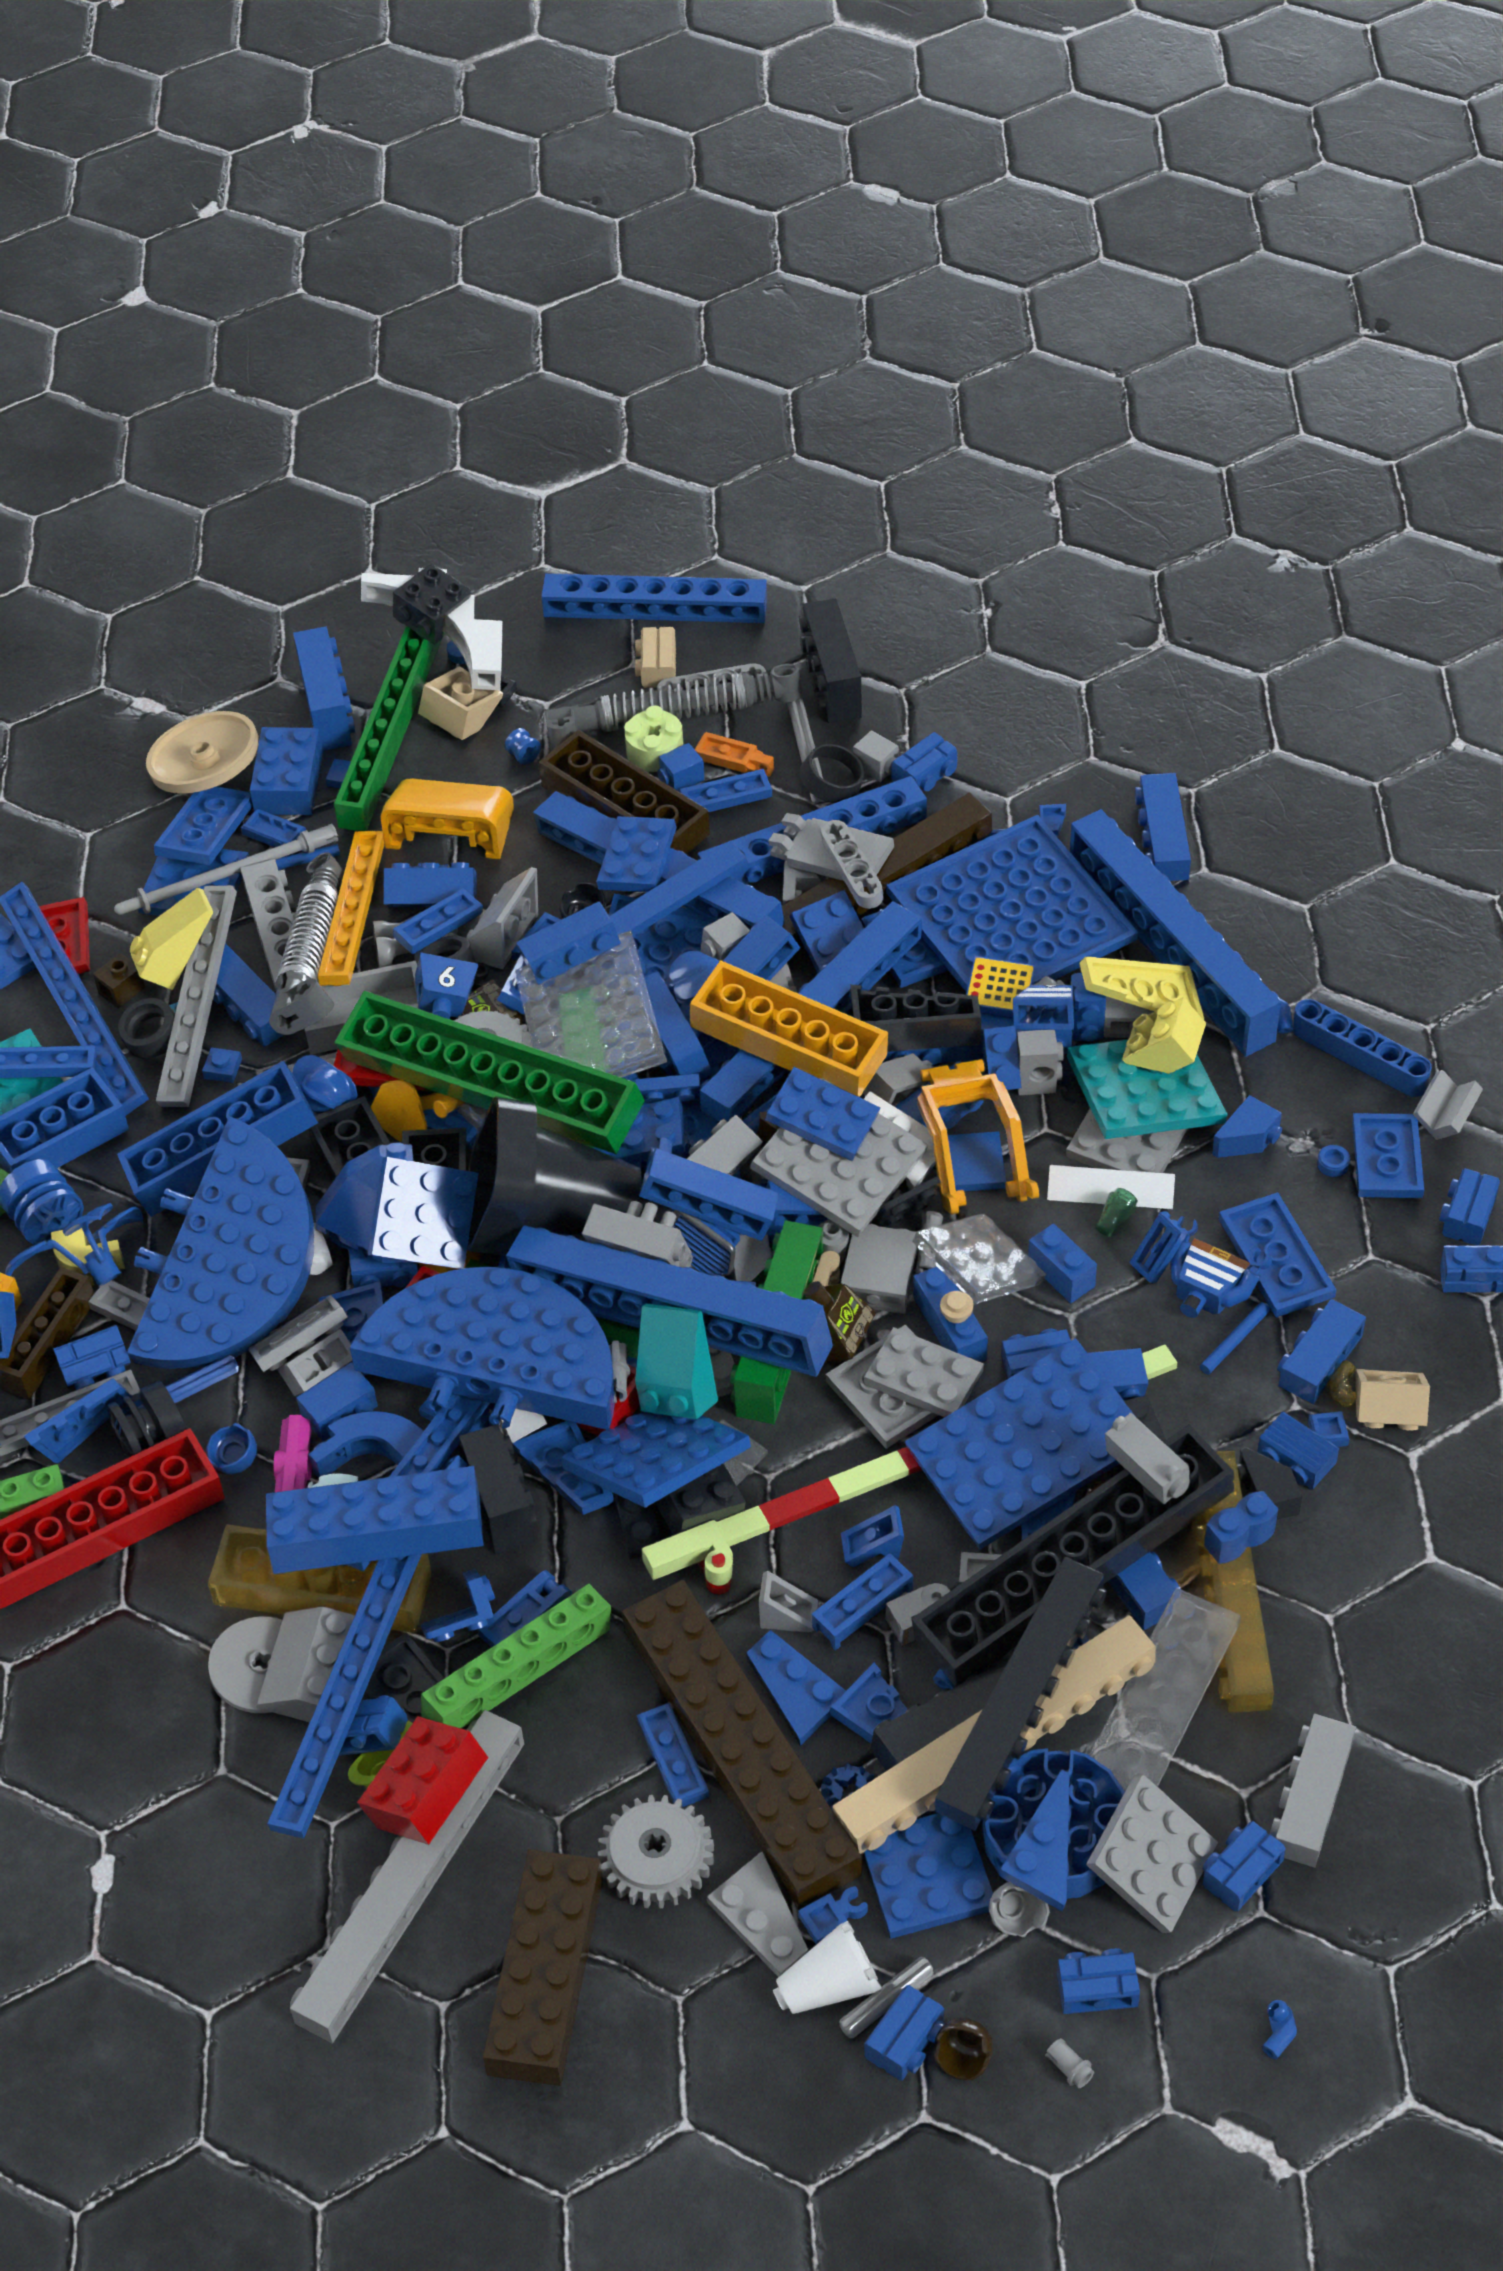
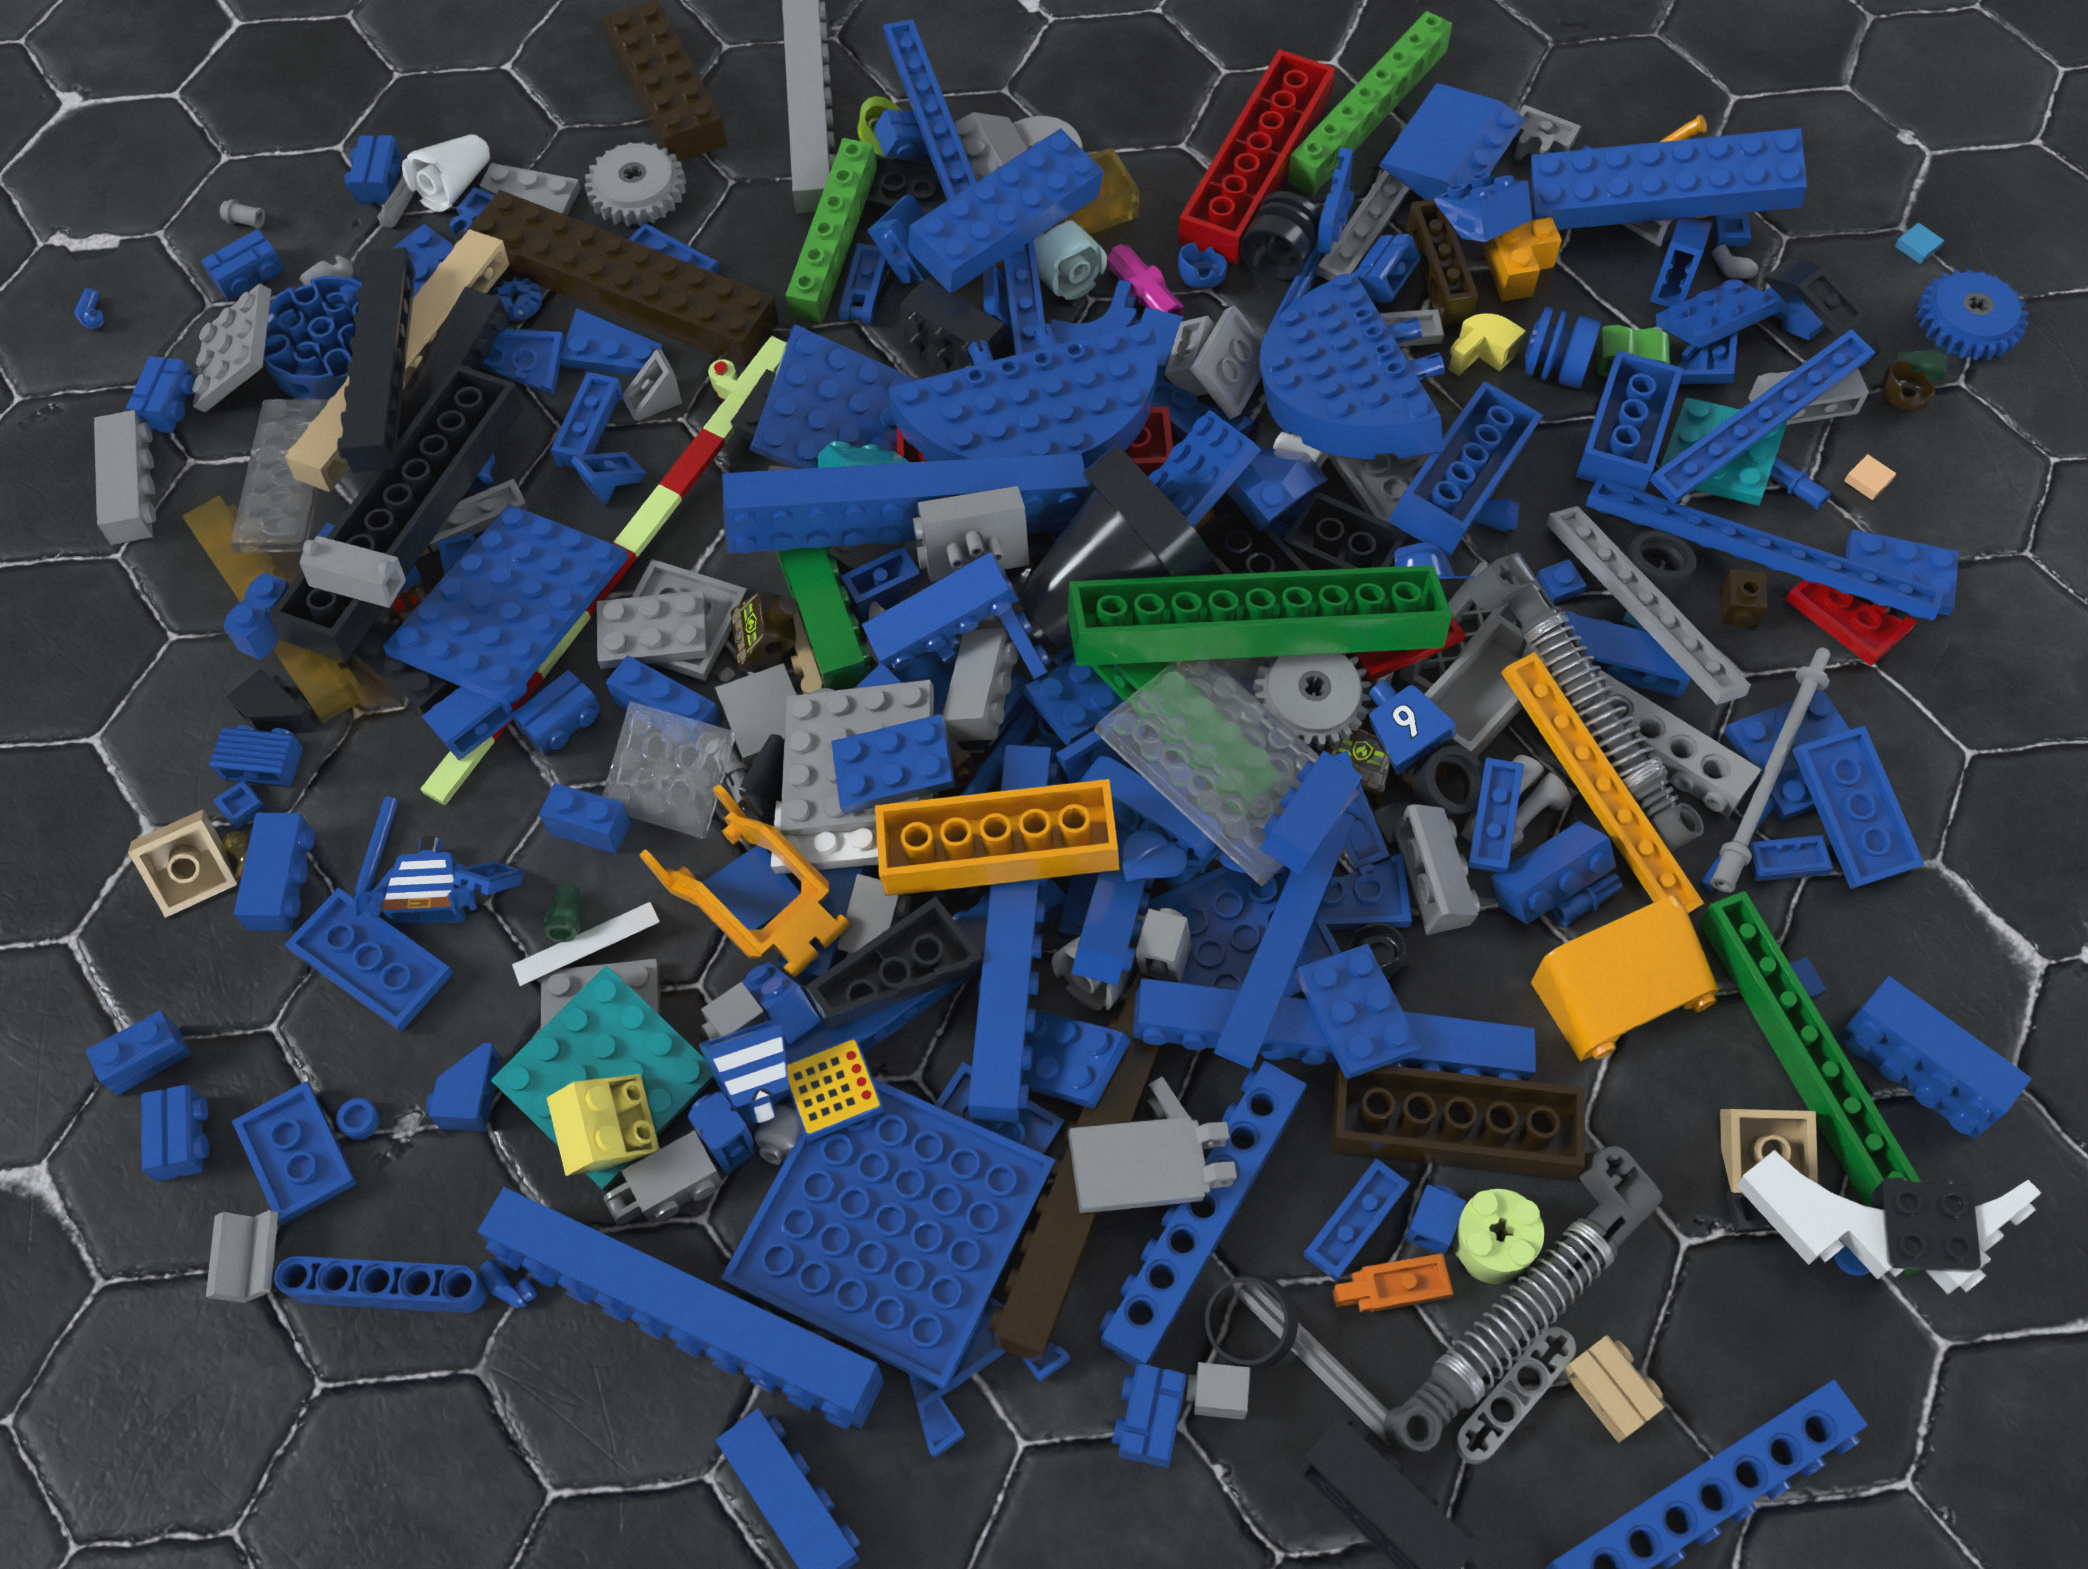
camera: 145 degrees right, 10 degrees up
(100, 1260) = (1453, 319): blue plant -> none
(170, 939) = (1727, 625): light yellow slope -> none
(202, 752) = (1961, 894): tan dish -> none
(287, 770) = (1854, 933): blue brick -> none
(423, 1780) = (827, 104): red brick -> none
(522, 746) = (1642, 1137): blue wheel -> none
(620, 1369) = (914, 449): light grey axle -> none
(856, 862) = (1094, 1136): light grey beam -> none
(909, 1605) = (533, 450): light grey leg -> none
(956, 1306) = (645, 676): tan plate -> none
(963, 2048) = (322, 179): dark brown hair -> none
(1041, 1852) = (315, 288): blue wing -> none
(1140, 982) = (647, 1180): light yellow wing -> none

